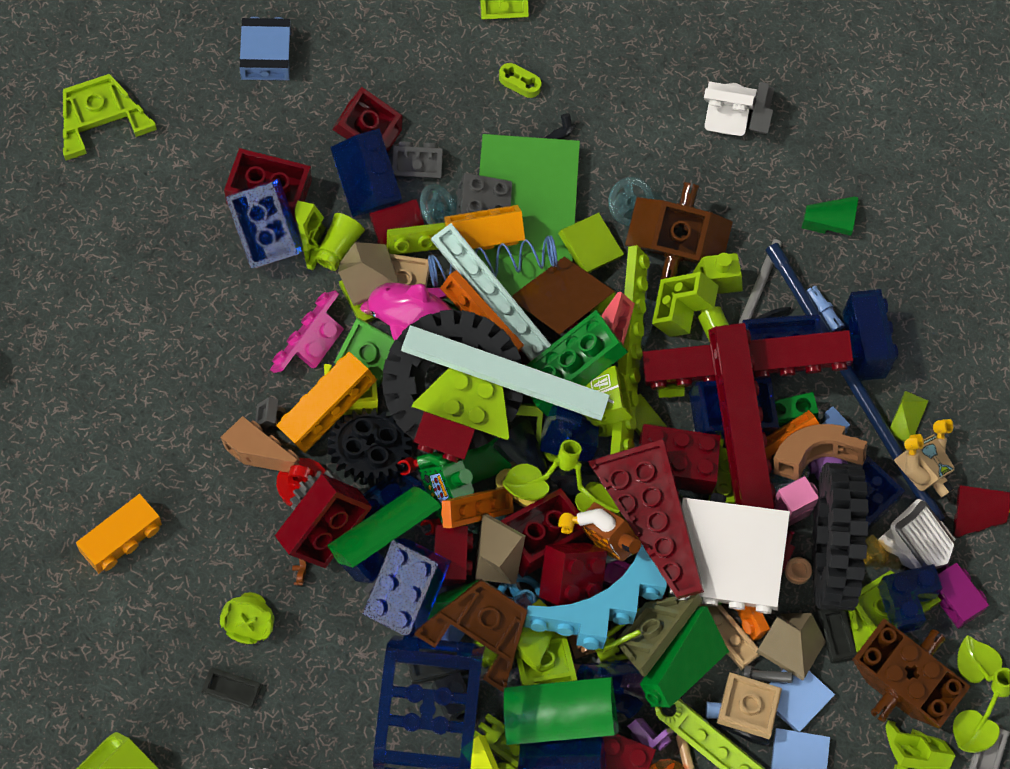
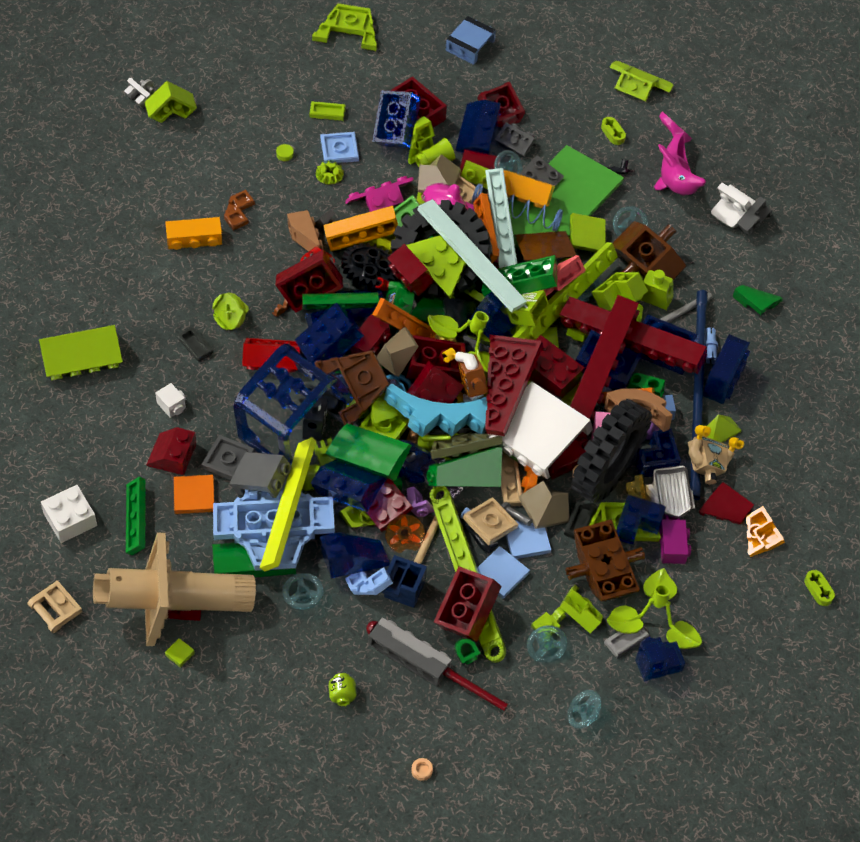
camera: 35 degrees right, 10 degrees down
(147, 345) = (284, 152): none -> lime tile
(147, 474) = (234, 214): none -> dark orange tile
(157, 253) = (327, 111): none -> lime tile
(210, 298) = (339, 147): none -> light blue tile
(228, 350) = (328, 178): none -> lime gear
(337, 642) = (257, 352): none -> red slope
(632, 96) = (675, 168): none -> dark pink animal

